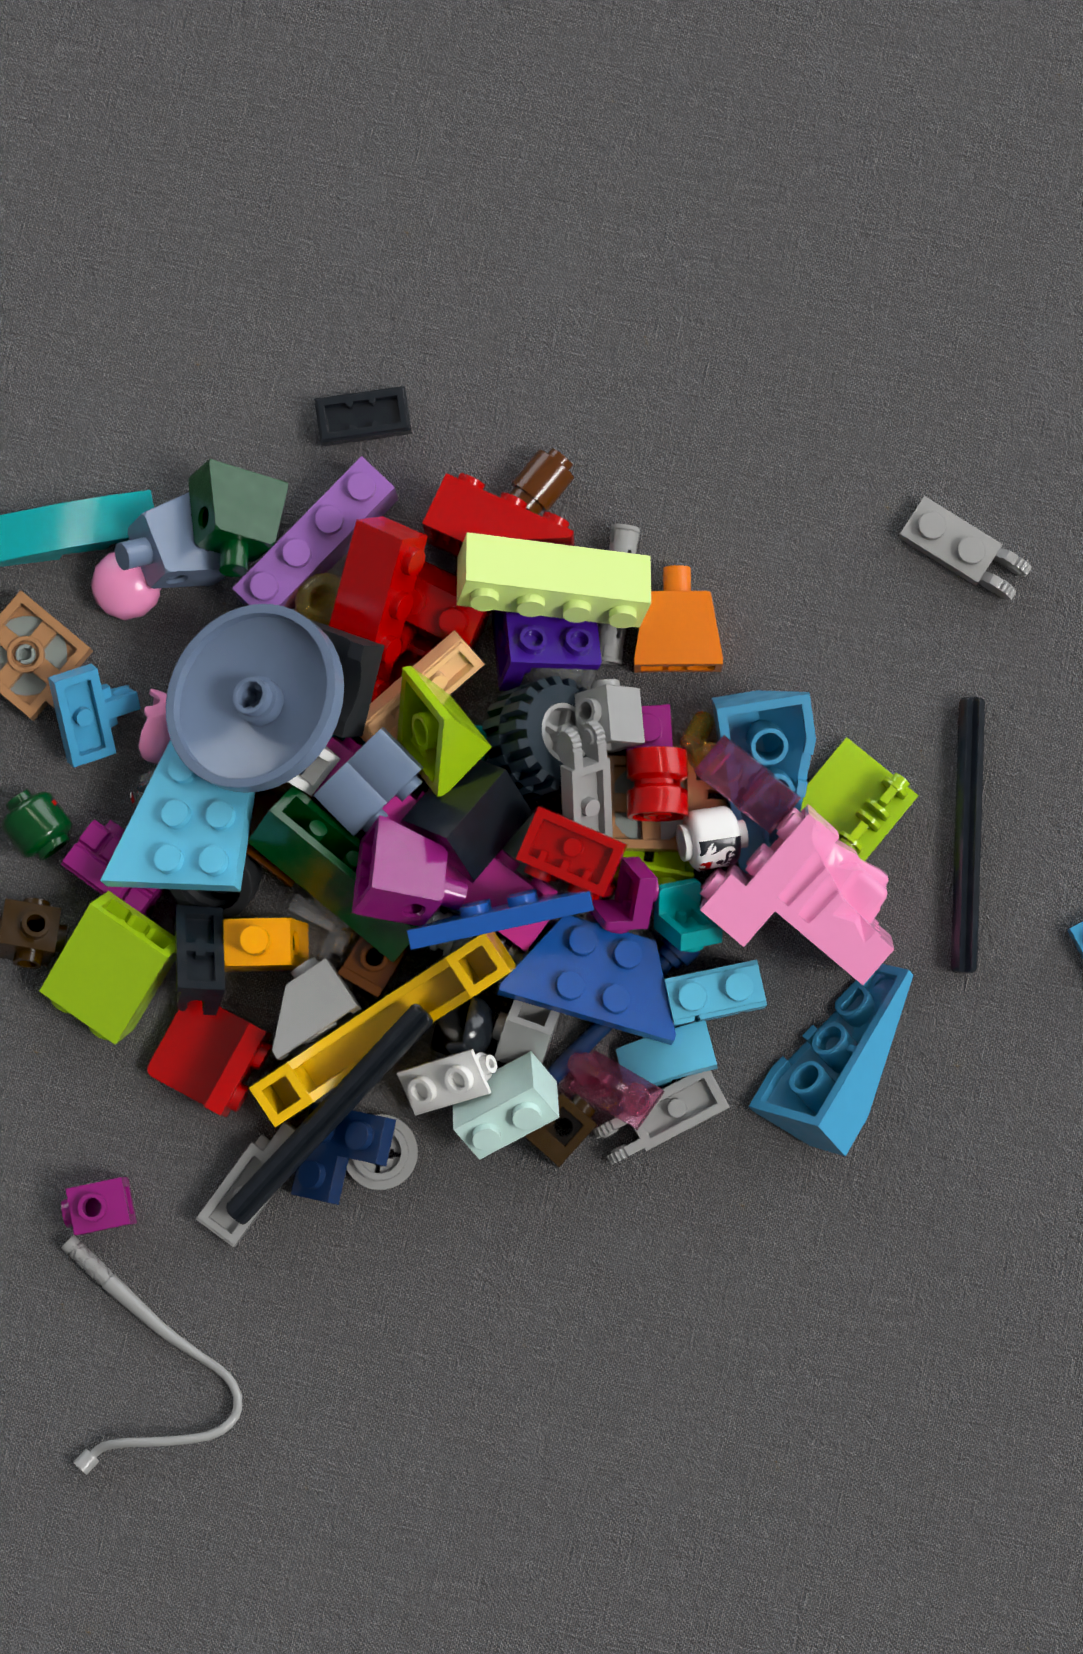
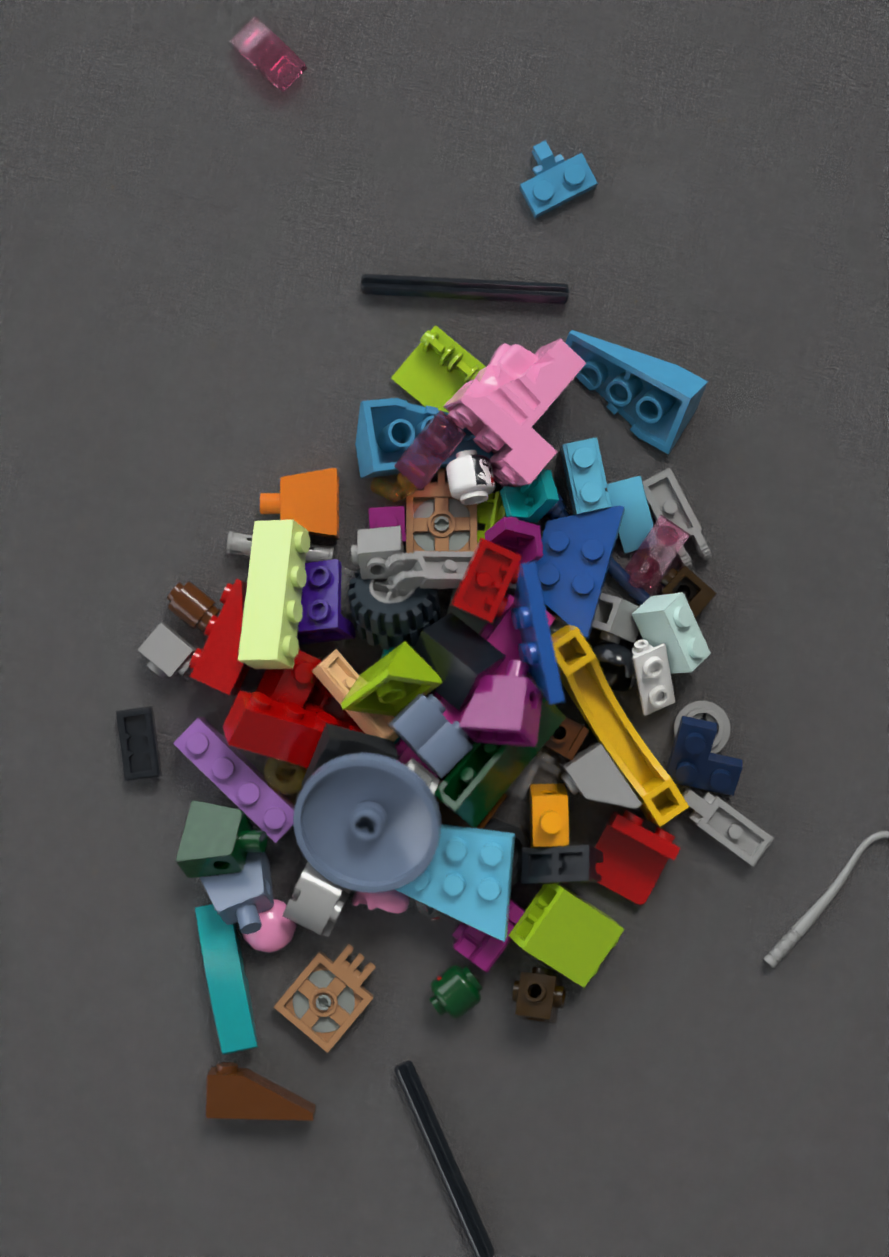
camera: 100 degrees left, 5 degrees up
(88, 712) = (369, 953): dark azure hinge -> none
(99, 1206) = (744, 939): magenta brick -> none
(153, 640) = (316, 902): none -> light grey brick
(329, 1114) = (678, 765): black axle -> none
(482, 449) = (167, 652): none -> light grey brick
(657, 784) = (430, 517): red wheel -> none
(961, 547) = (246, 289): light grey hinge -> none

